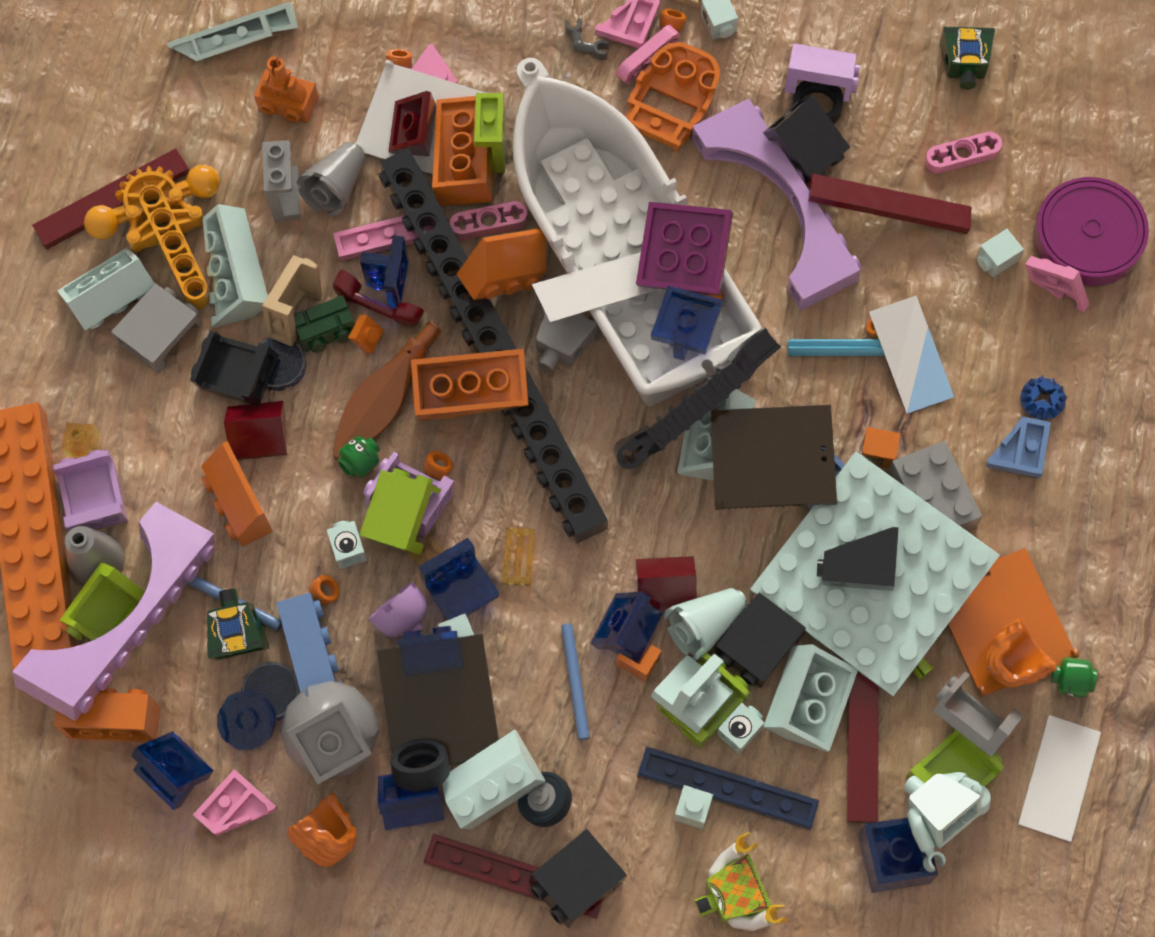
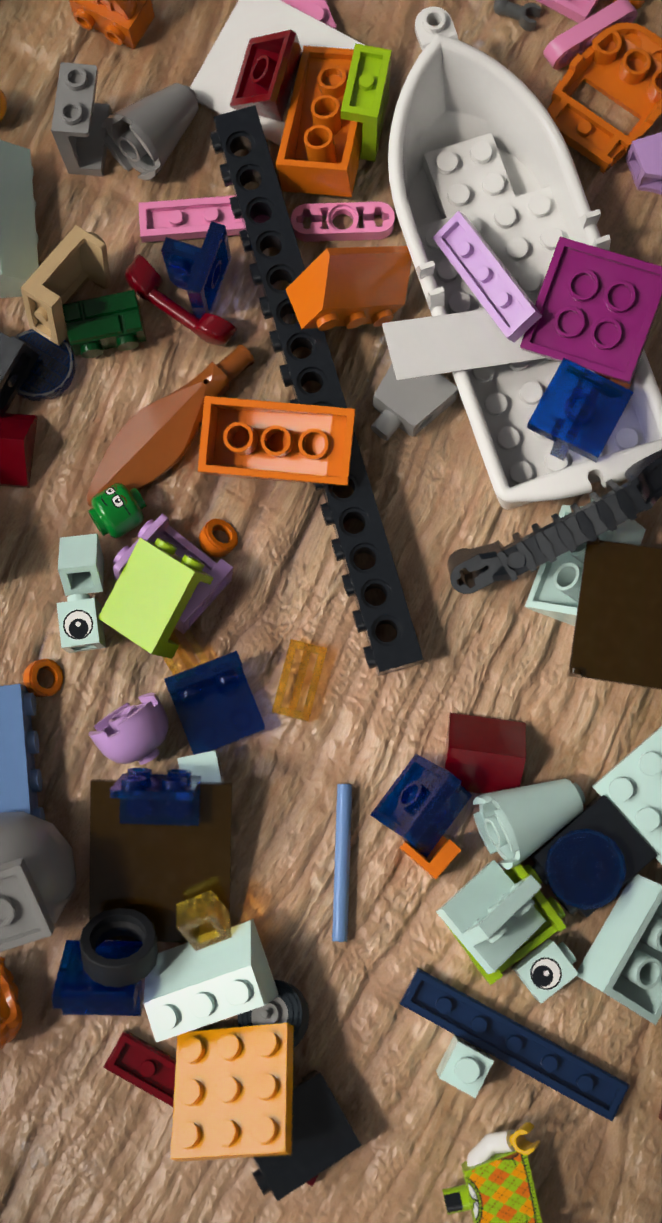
camera: 10 degrees right, 10 degrees up
(339, 499) = (81, 564): none -> light aqua brick
(366, 333) = (156, 346): orange plate -> none
(479, 736) = (203, 920): none -> clear yellow plate
(524, 851) = (233, 1093): none -> light orange plate
(602, 239) = (487, 277): none -> lavender plate
(754, 646) = (585, 869): none -> clear blue tile

